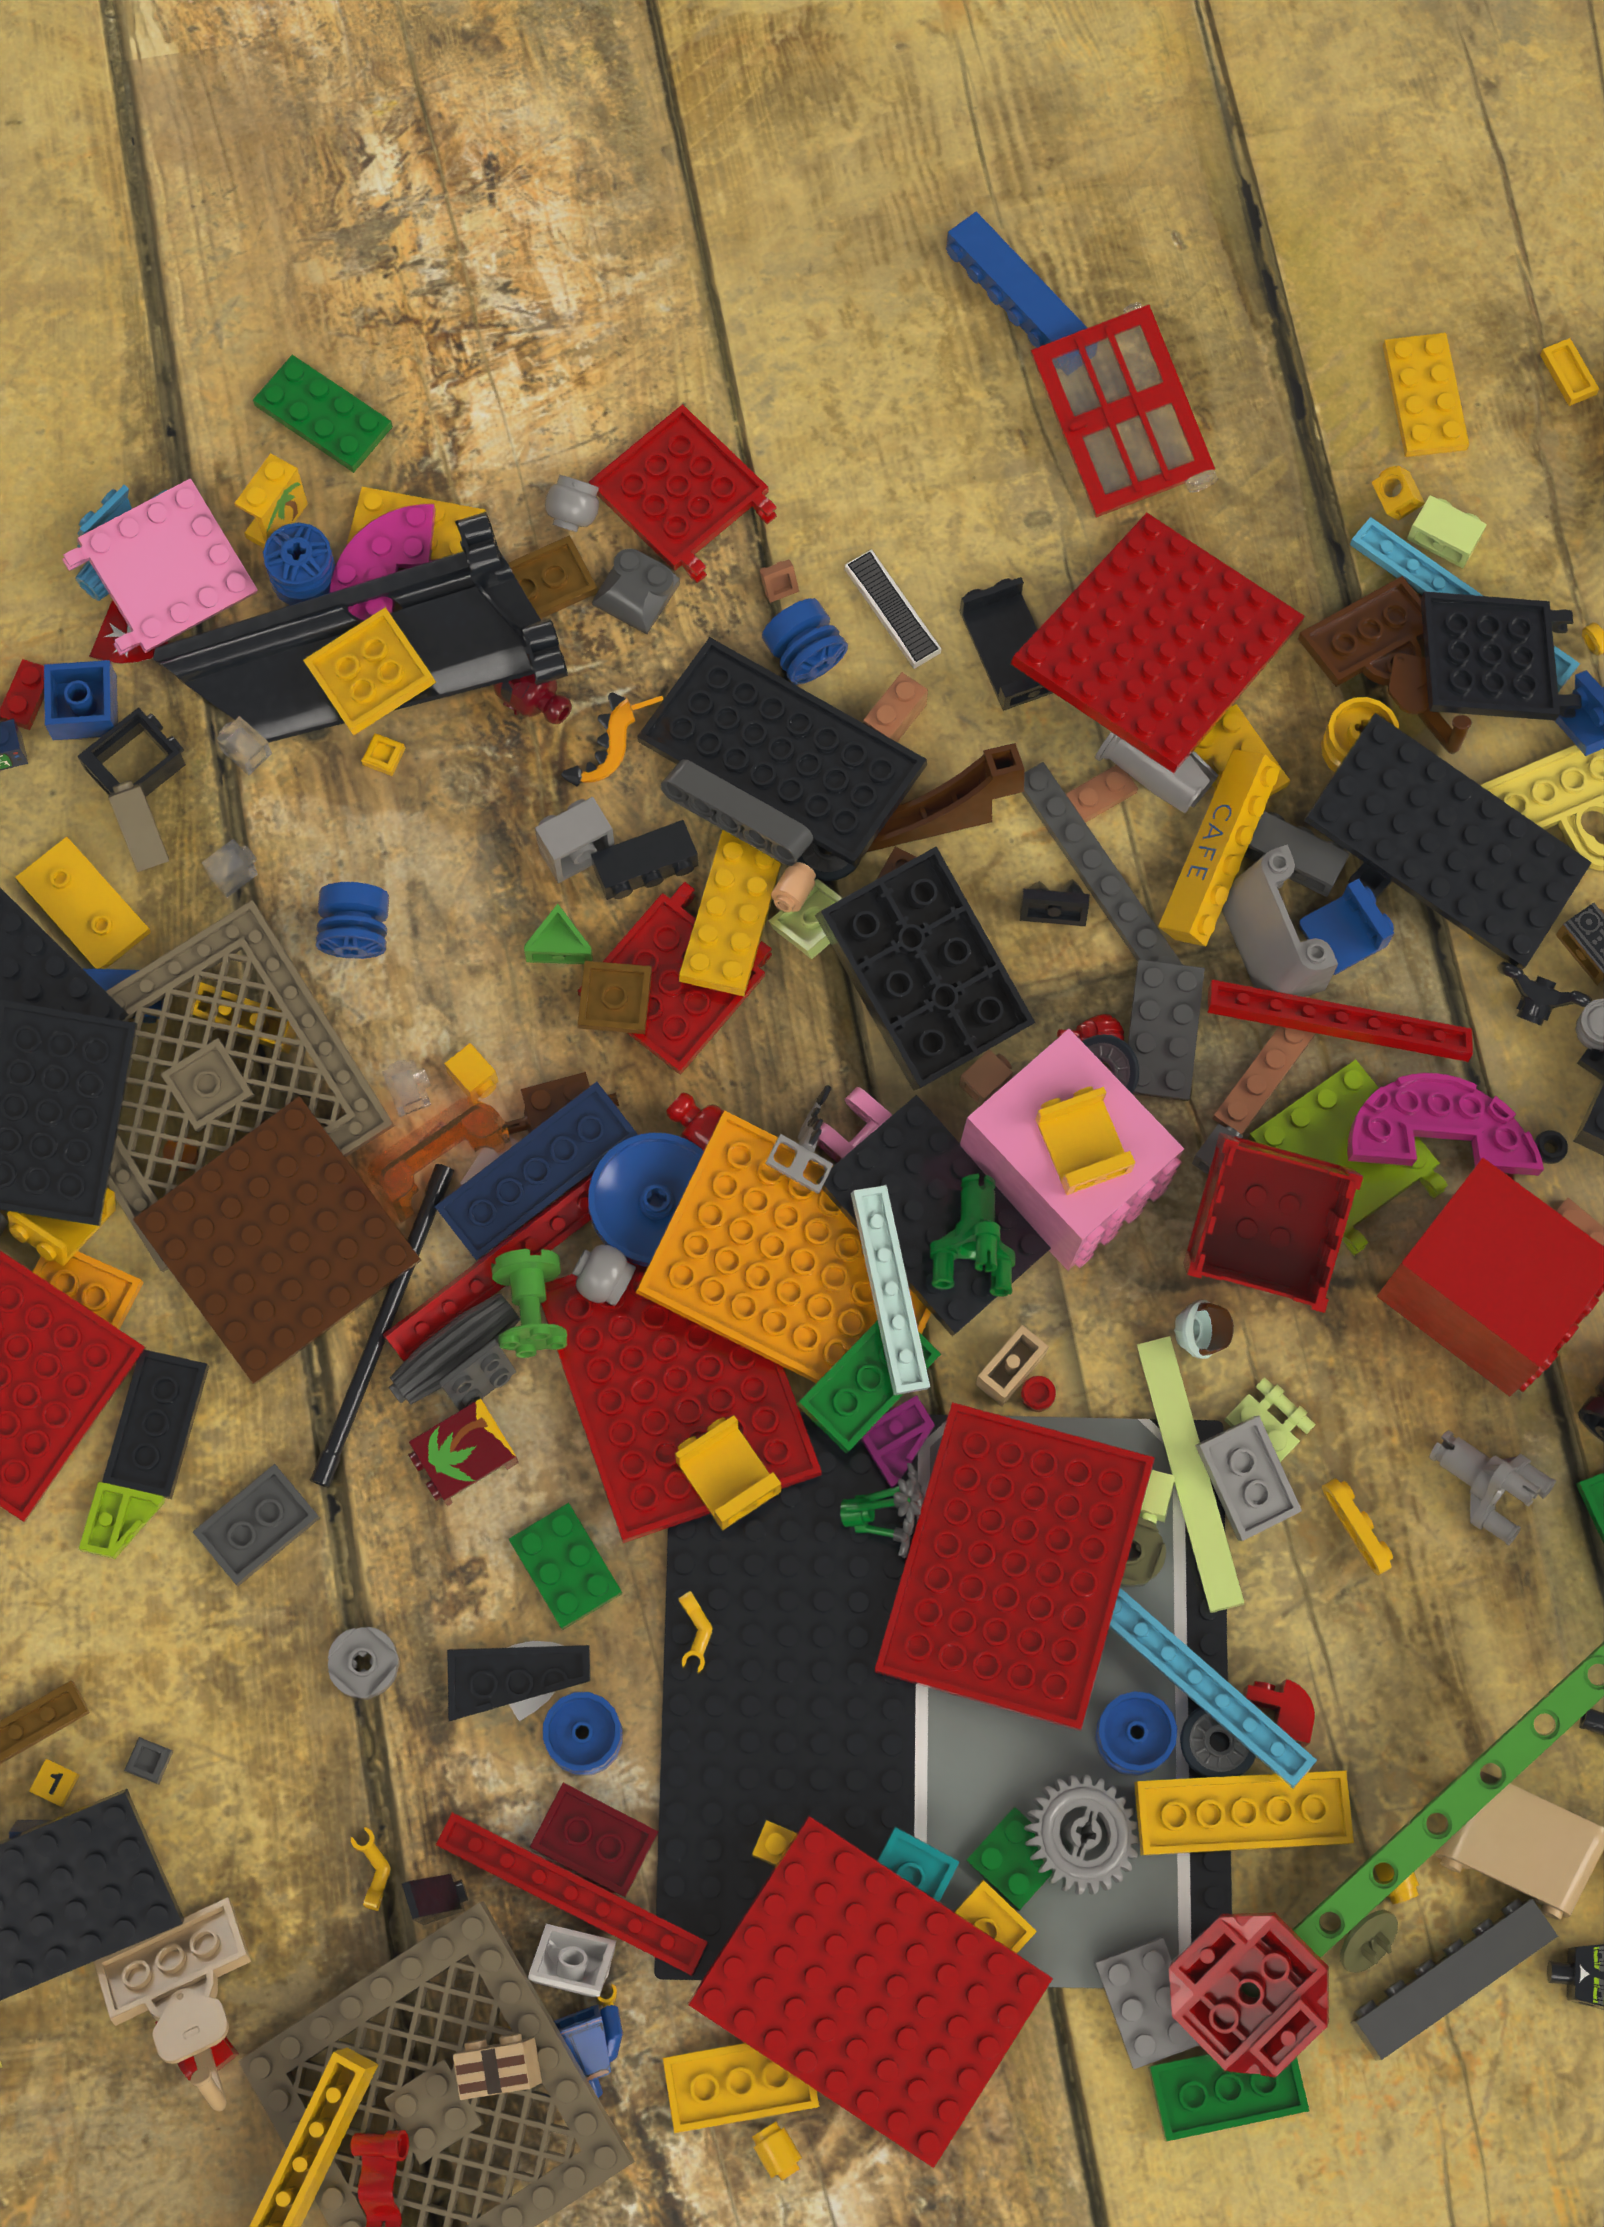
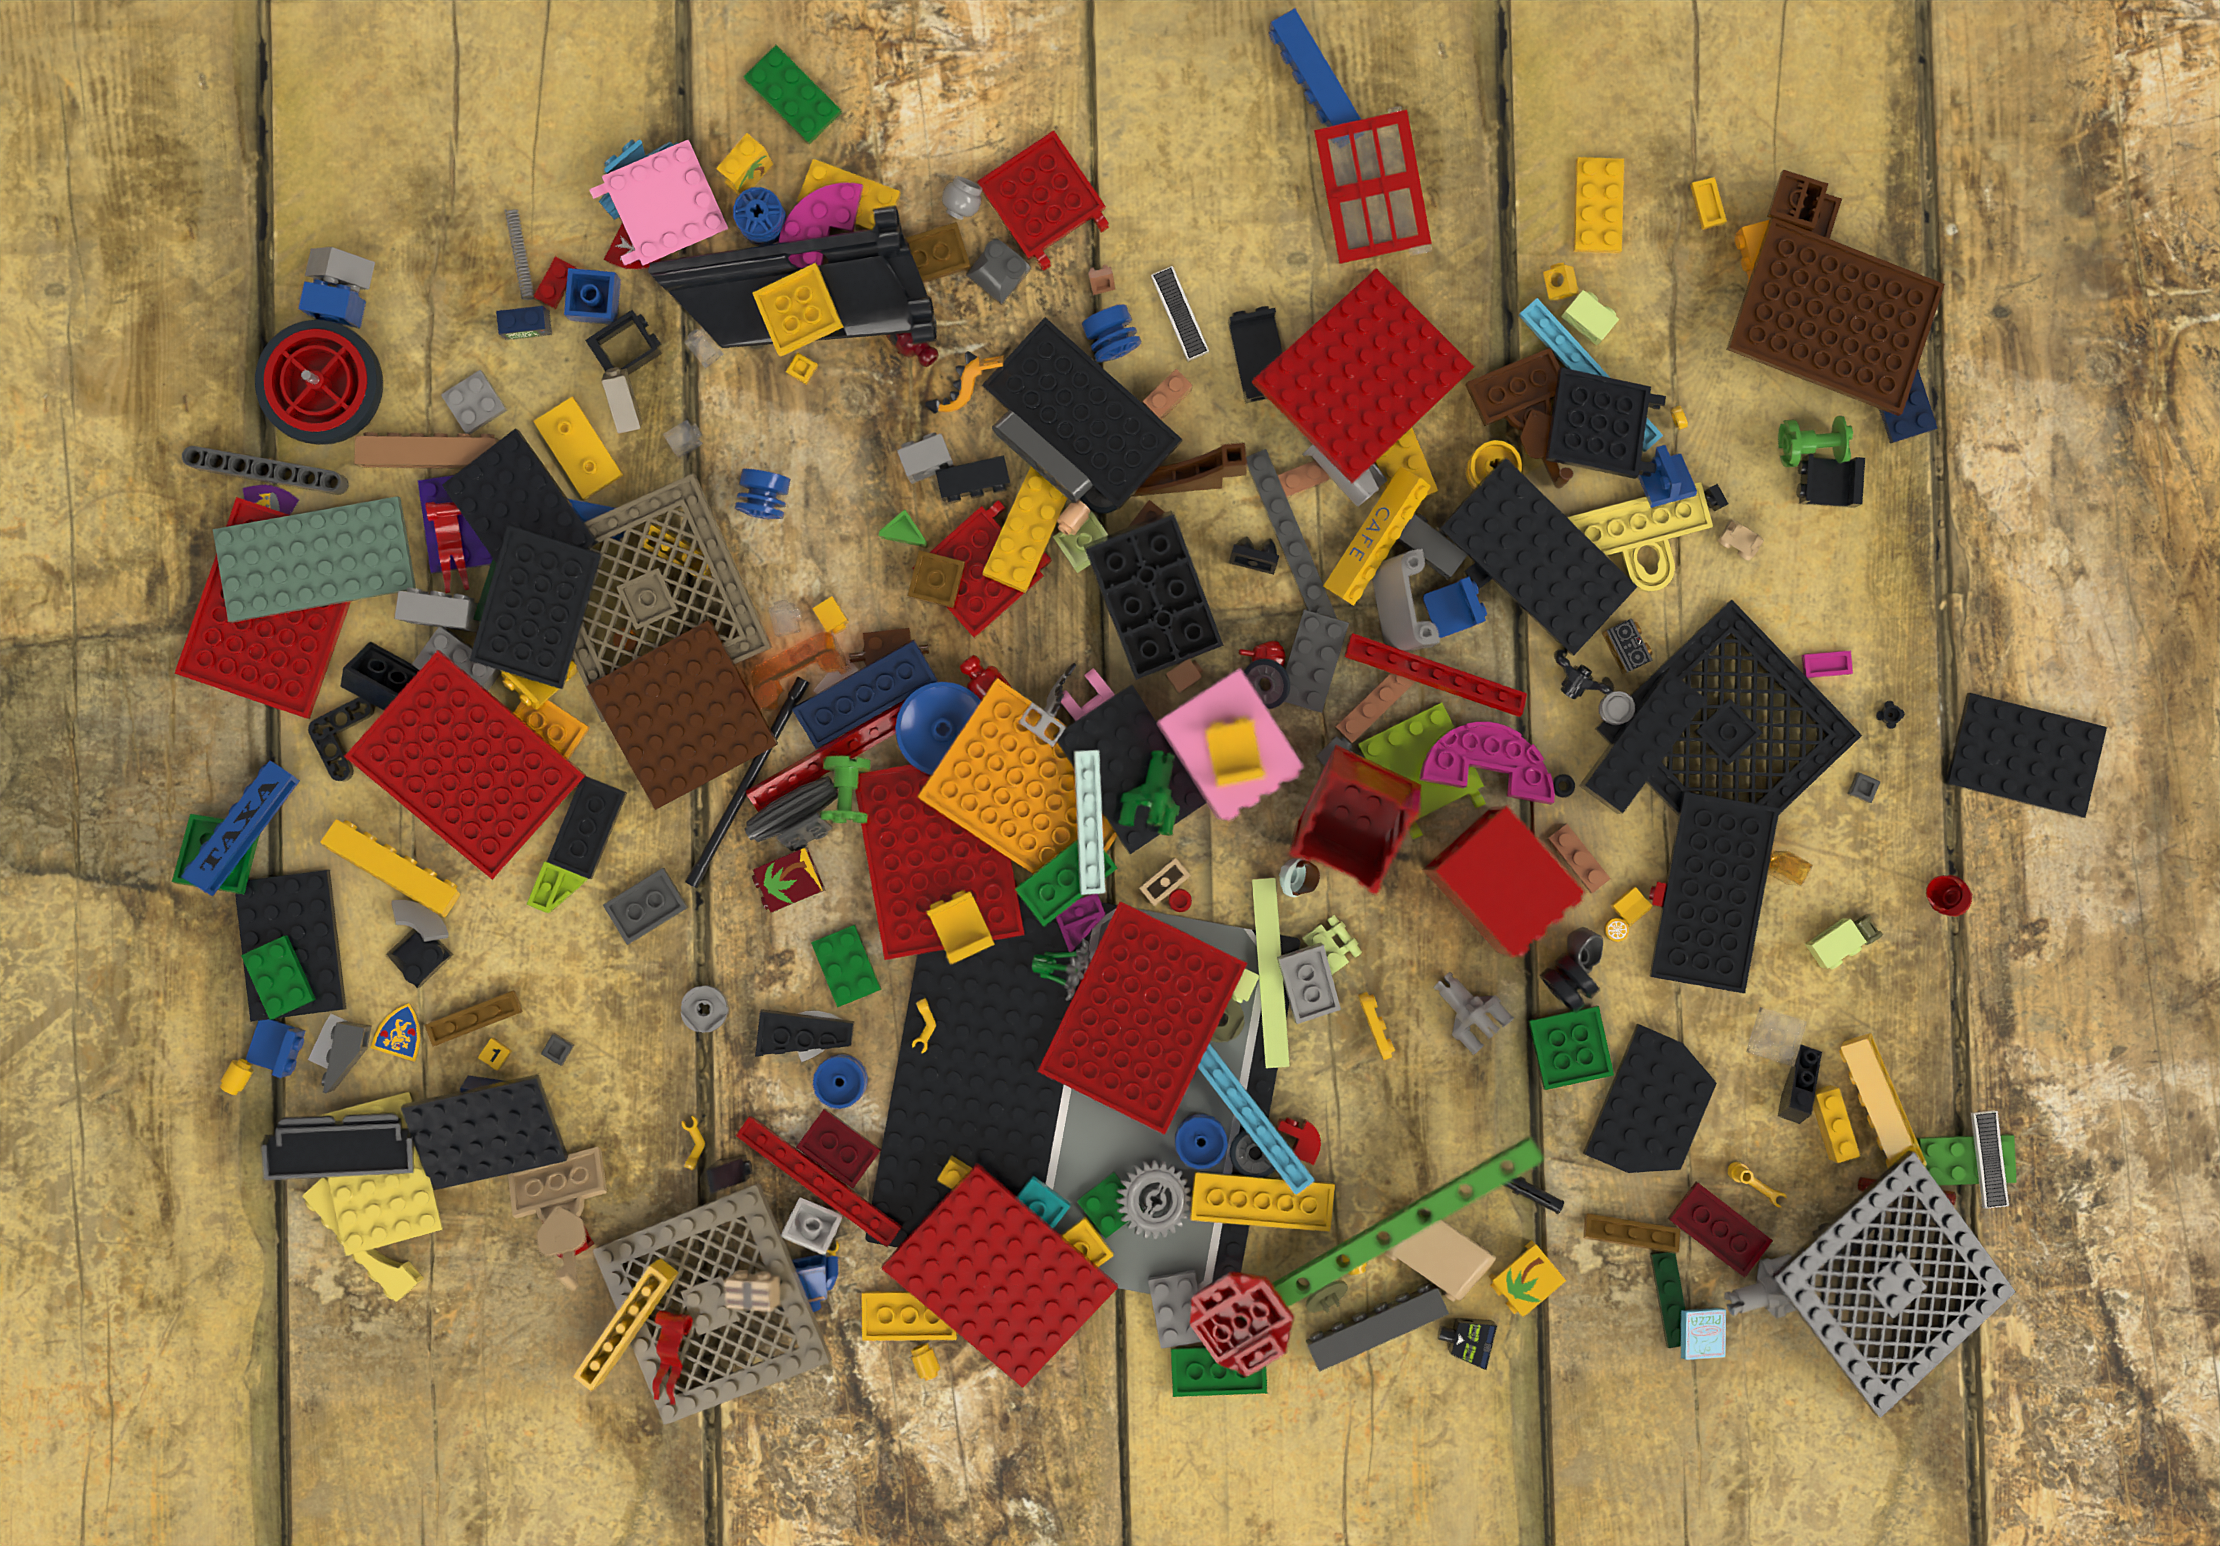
camera: 15 degrees right, 15 degrees up
(603, 1274) = (898, 778): light grey piece -> none

